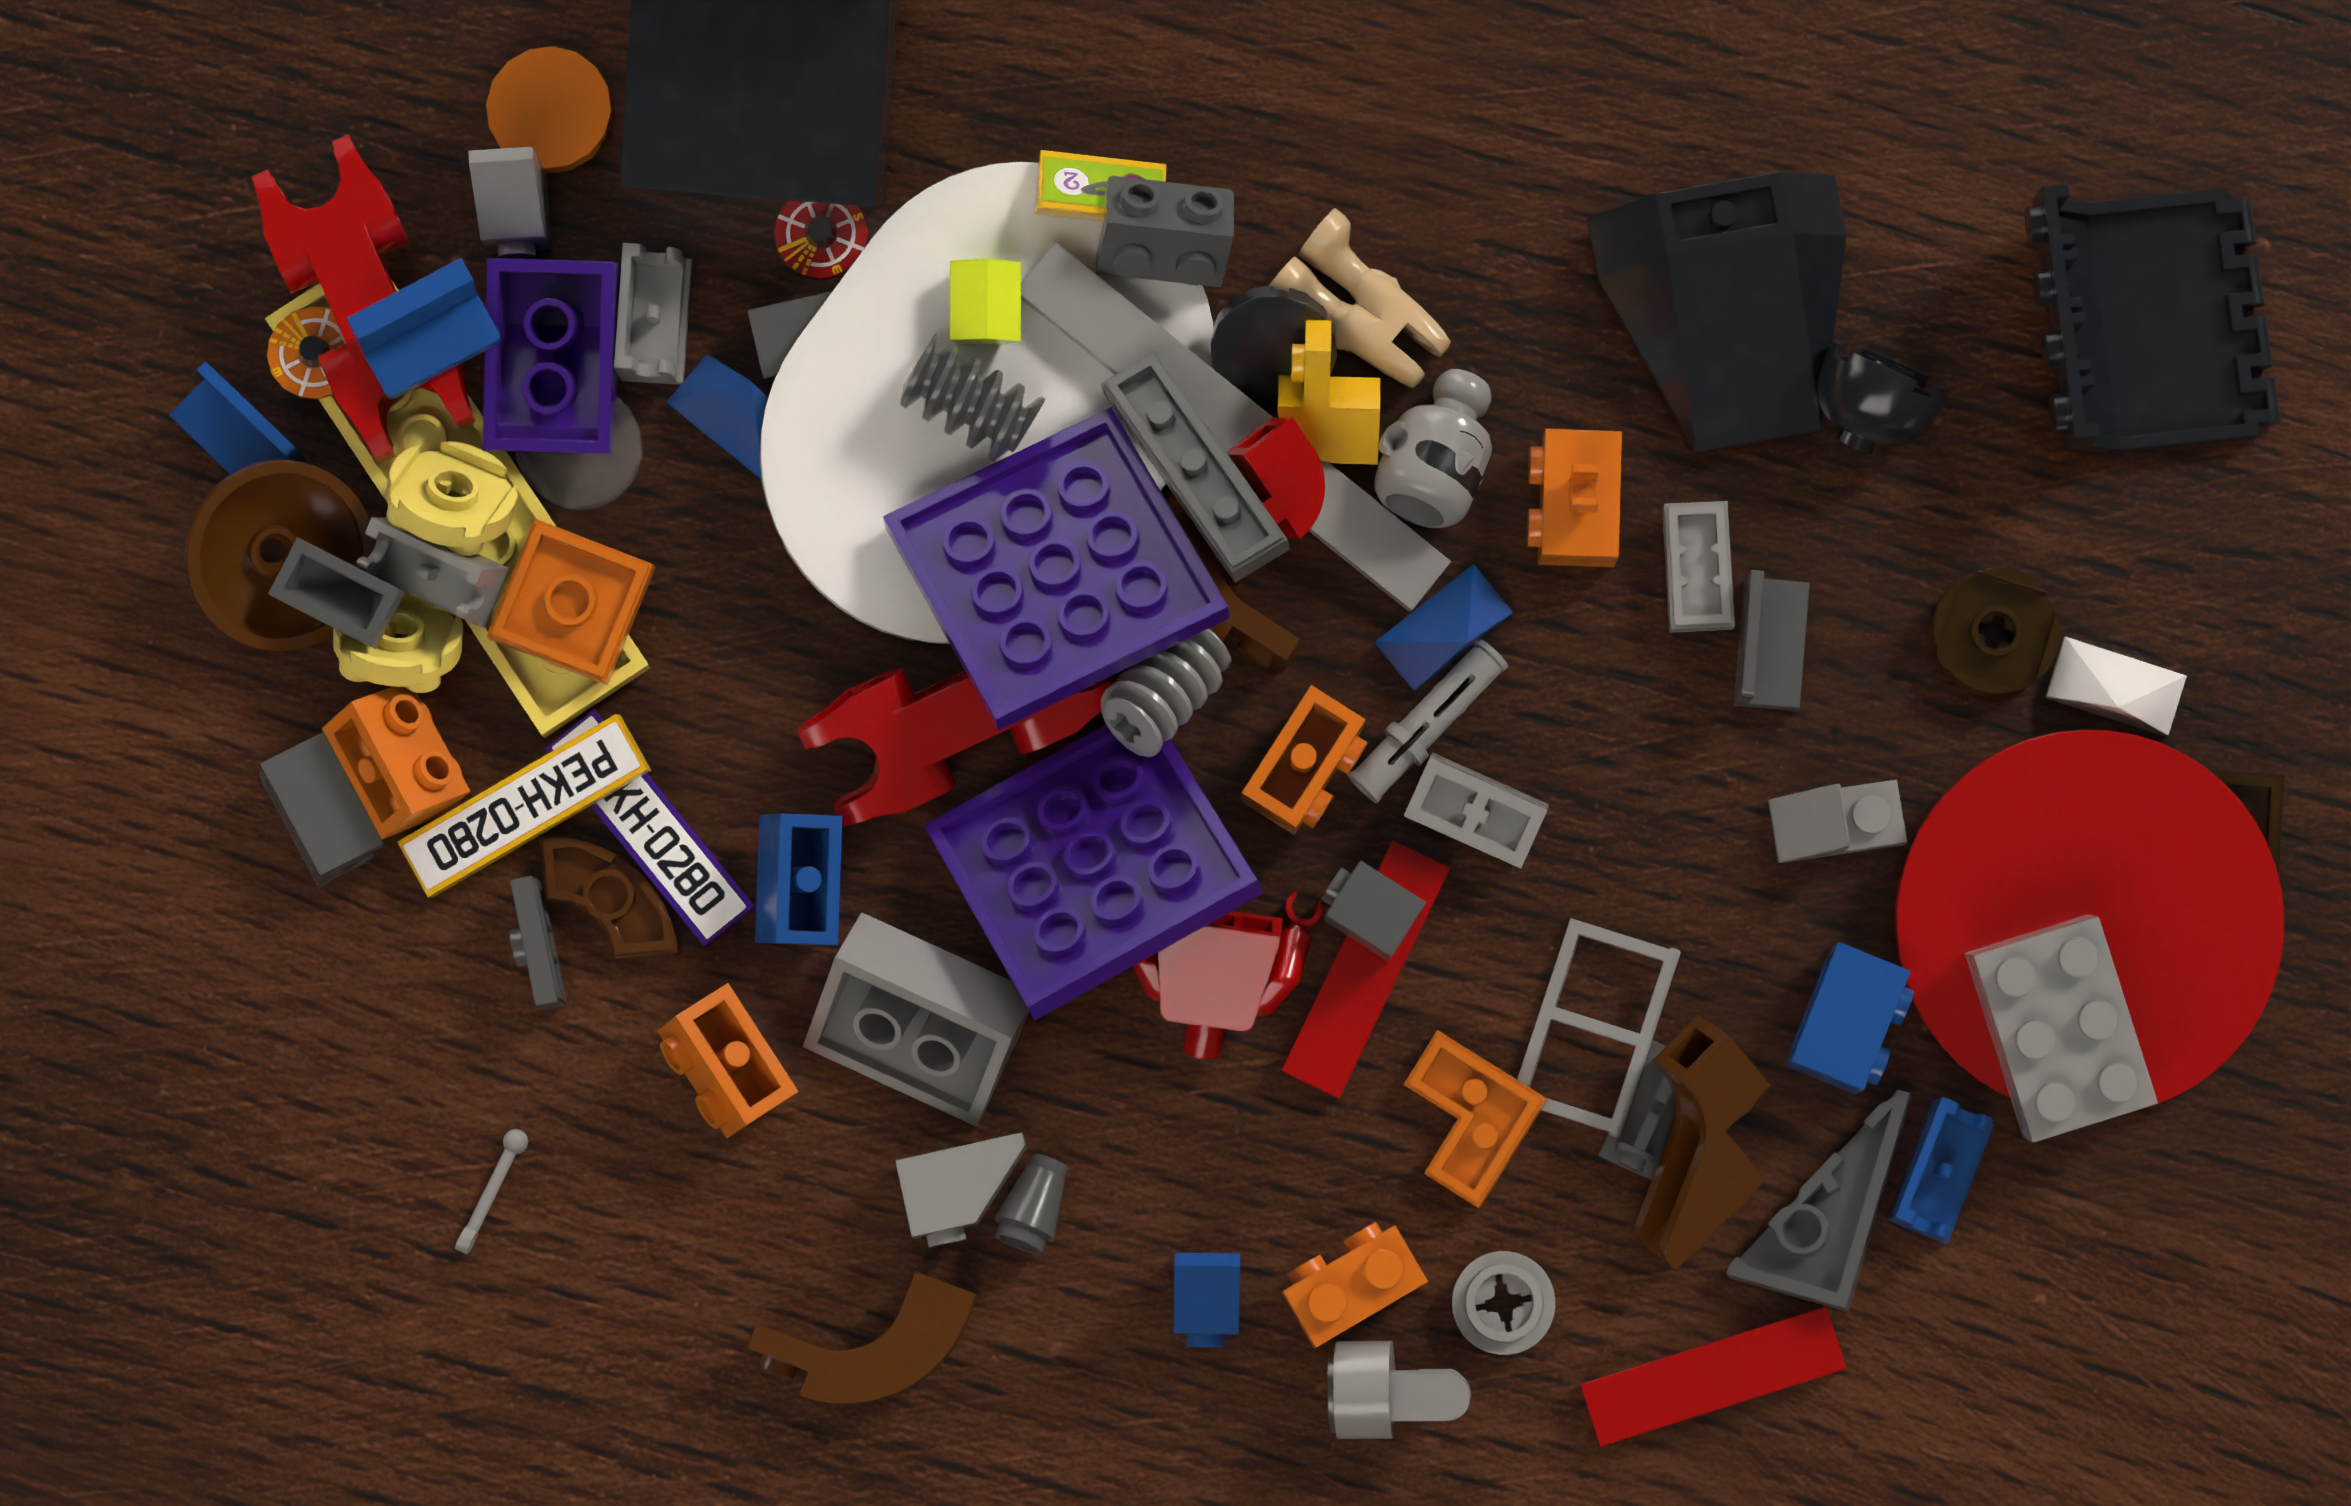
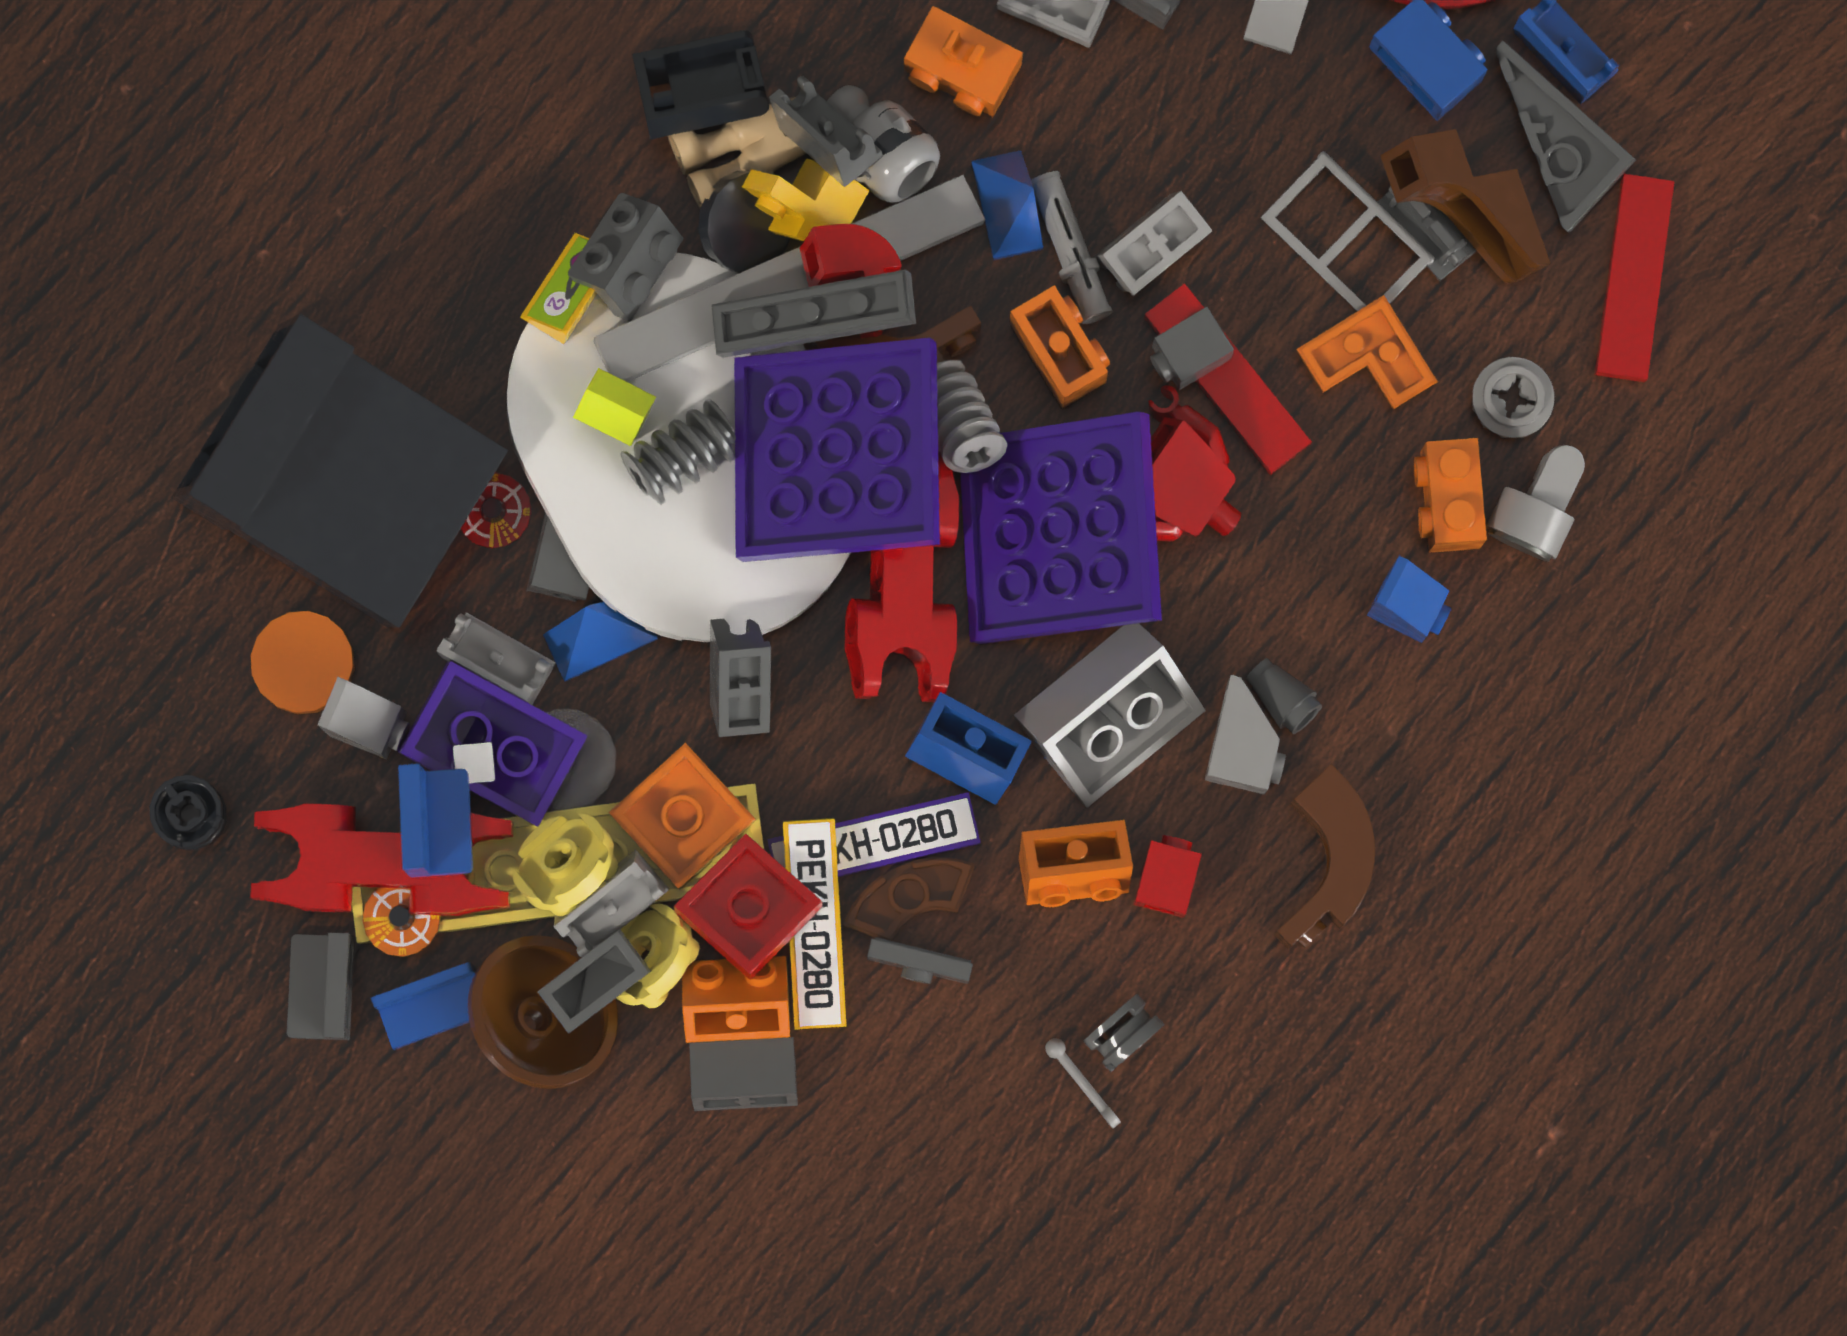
camera: 65 degrees left, 0 degrees up
(202, 306) = (320, 986): none -> dark grey panel
(323, 68) = (188, 812): none -> black wheel
(499, 721) = (748, 906): none -> red tile
(518, 344) = (476, 760): none -> white sticker
(560, 1214) = (1126, 1037): none -> dark grey wheel
(750, 589) = (739, 679): none -> dark grey hinge
(762, 1172) = (1168, 876): none -> red brick
(1411, 381) = (824, 133): none -> dark grey hinge
(1414, 231) = (709, 83): none -> black container

